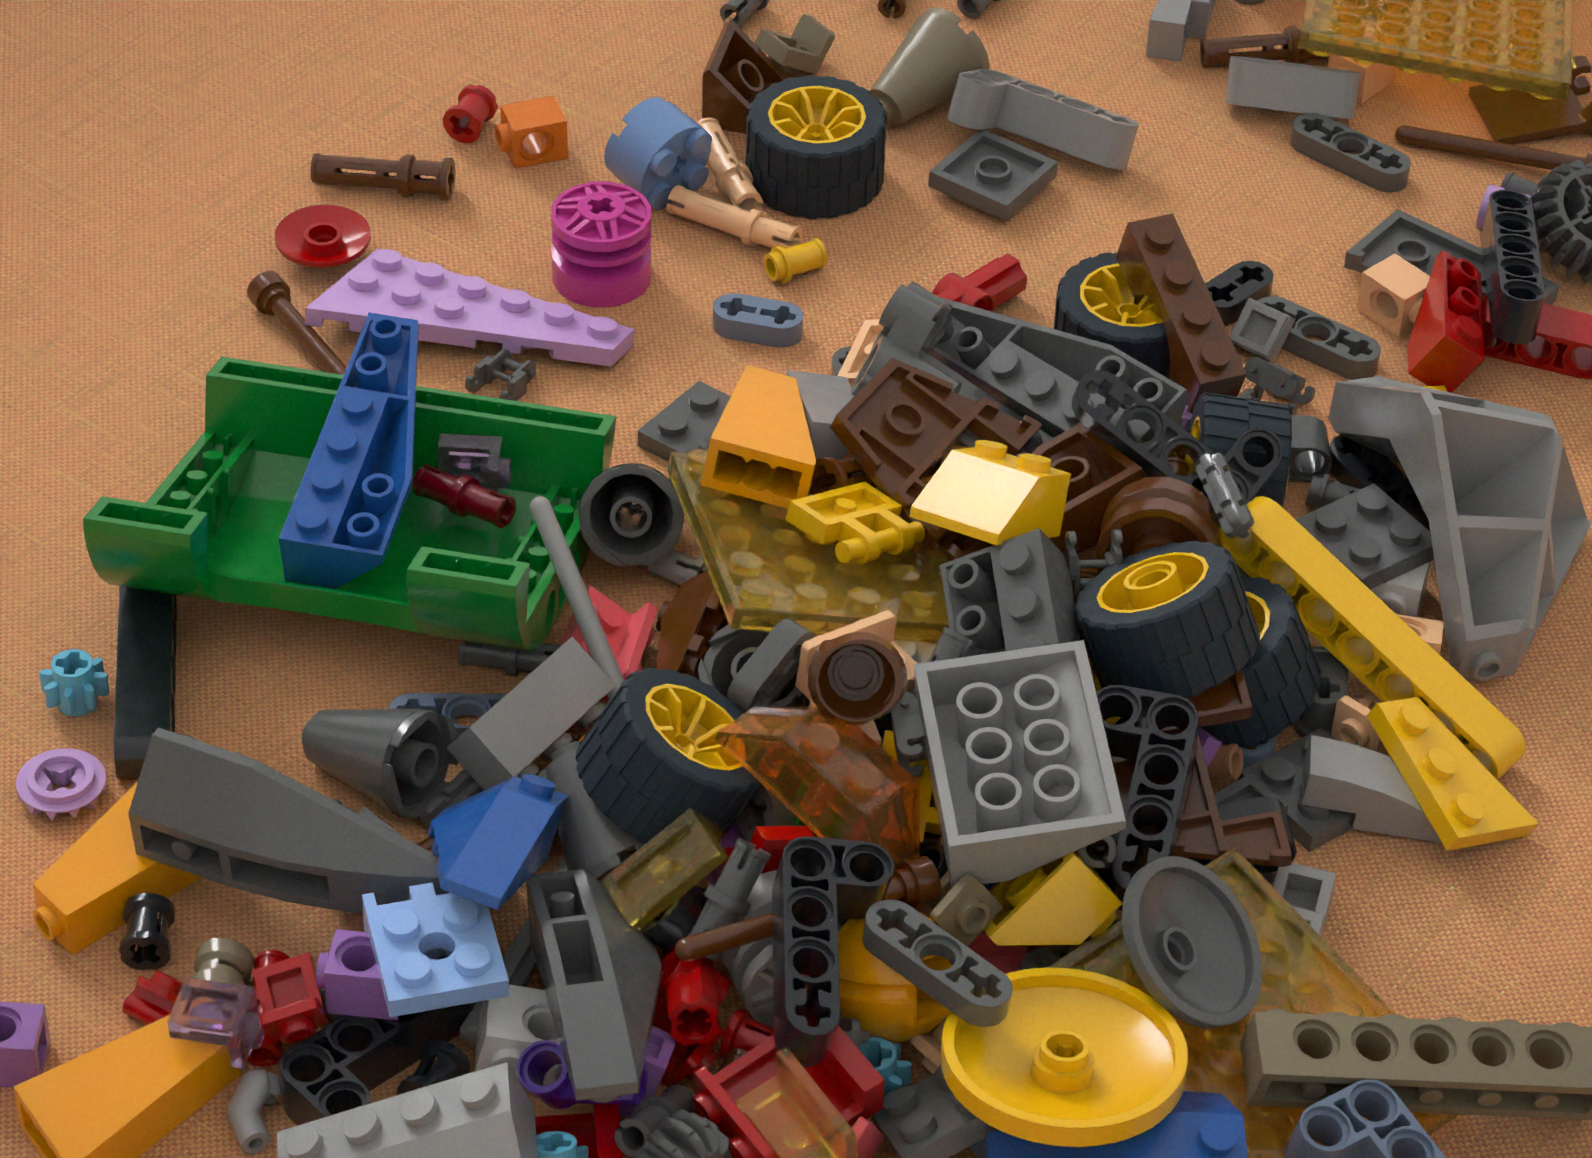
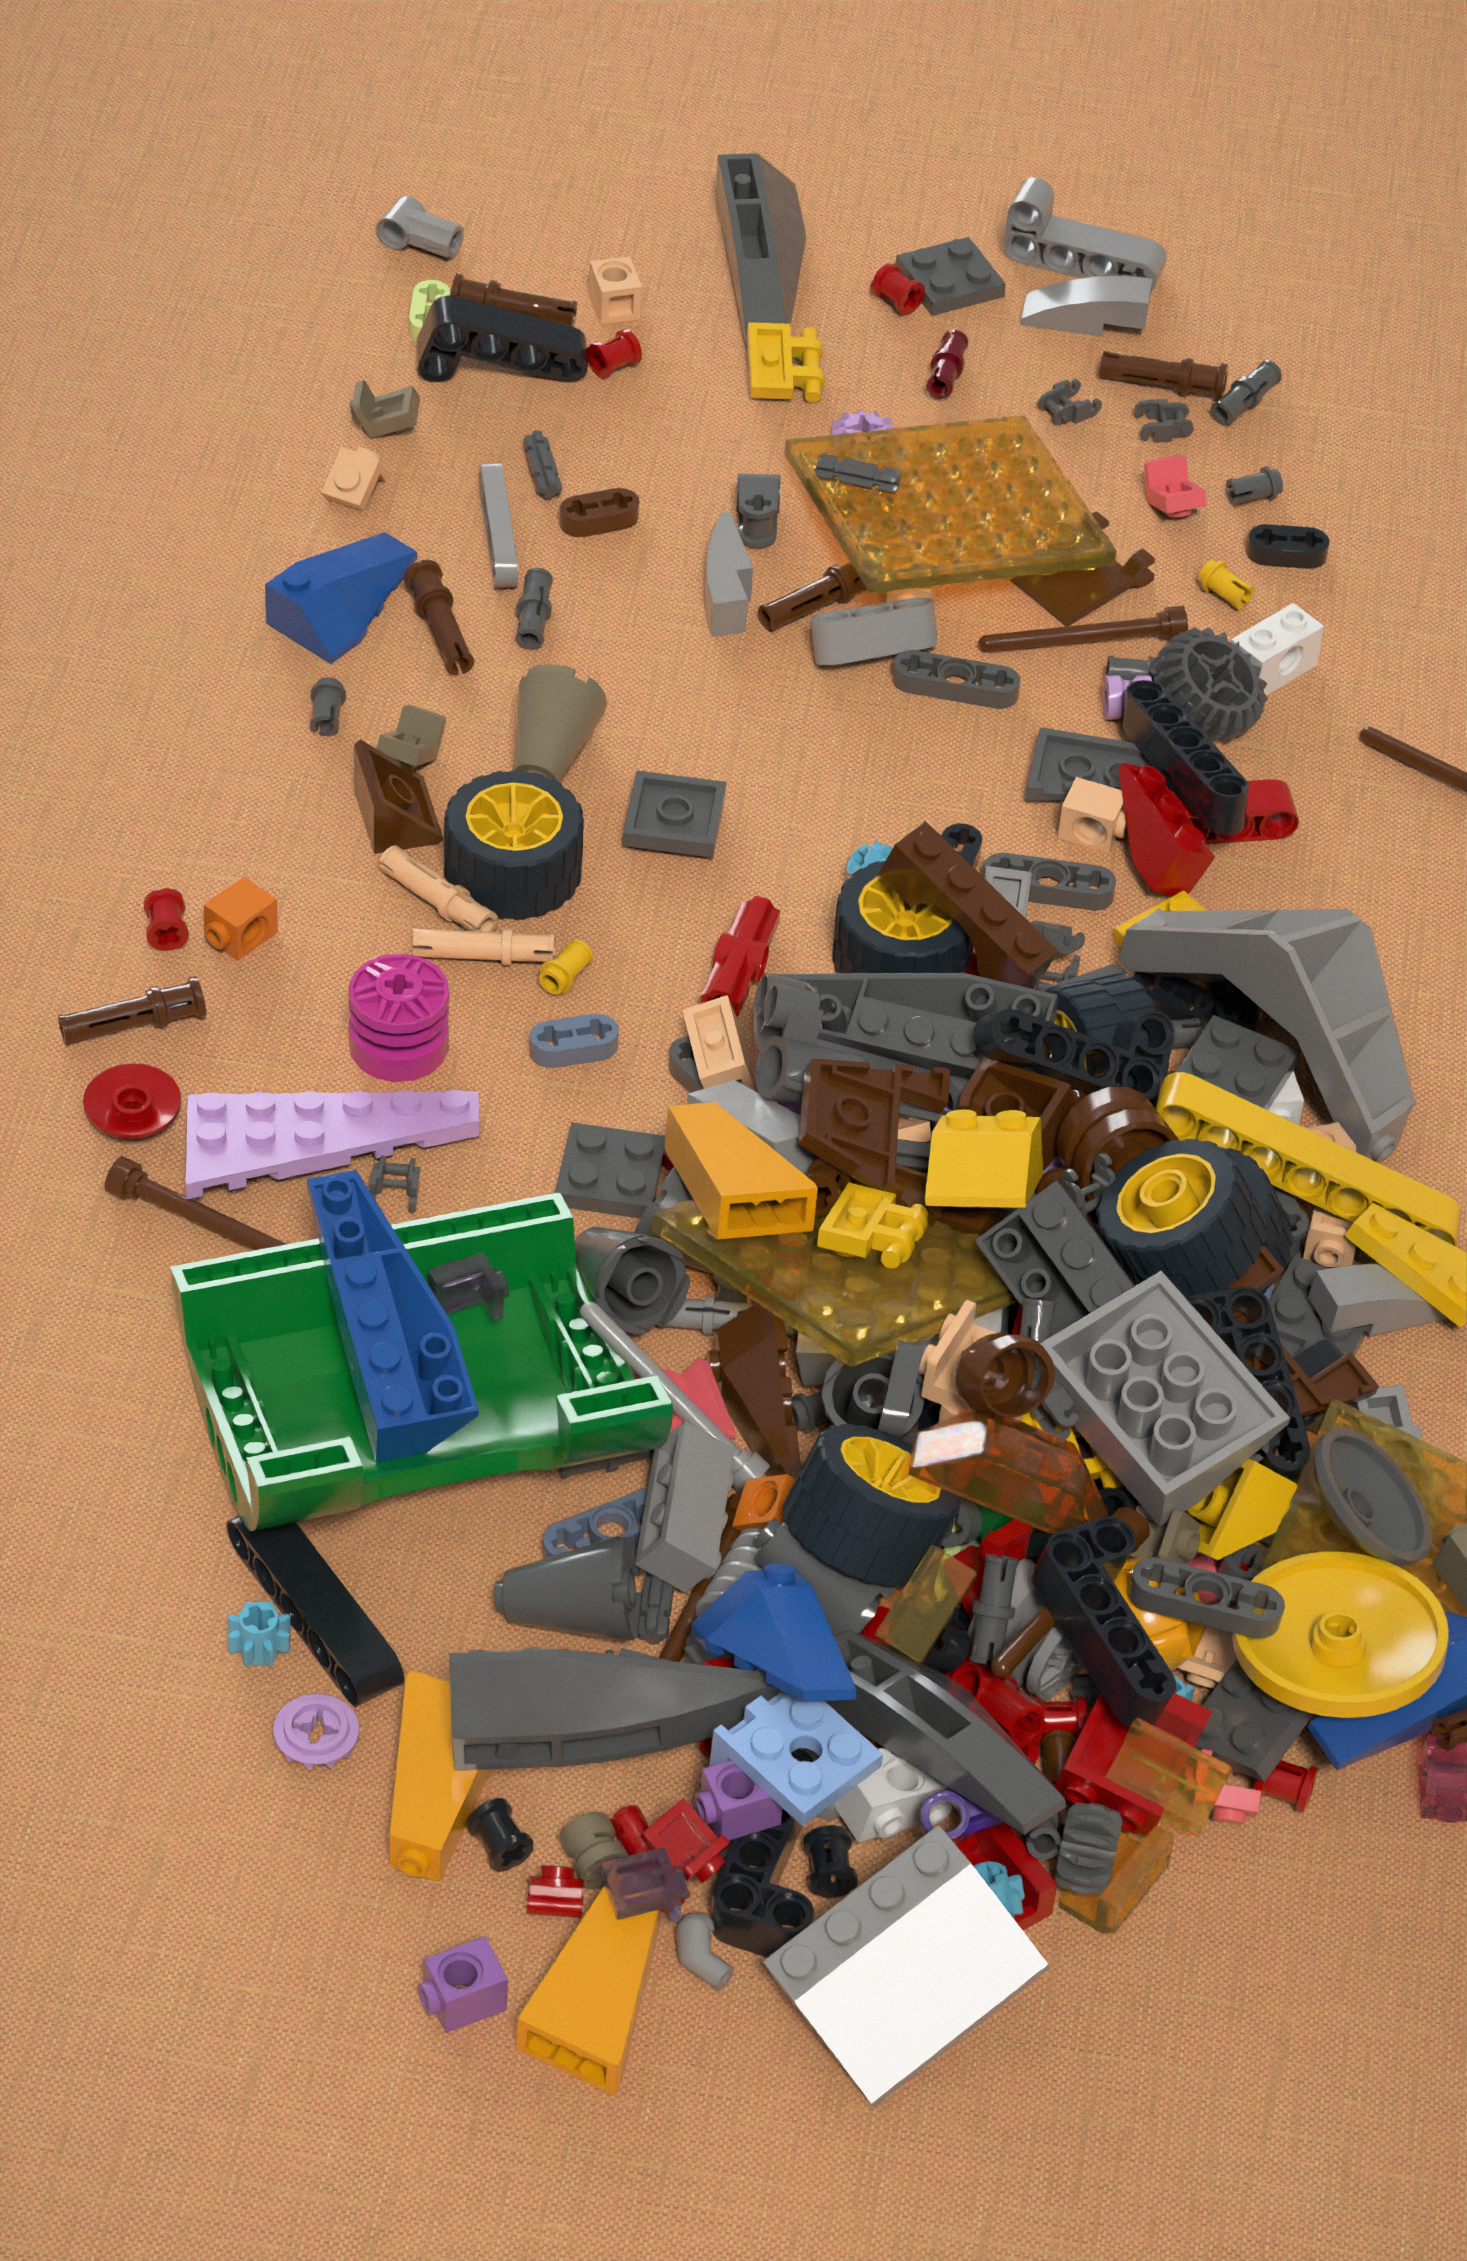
camera: 30 degrees left, 5 degrees up
(464, 496) = (488, 1320): dark red pin -> none
(659, 151) = (382, 902): medium blue brick -> none
(1039, 114) = (687, 739): light grey beam -> none
(1225, 495) = (1155, 1085): dark grey axle -> none

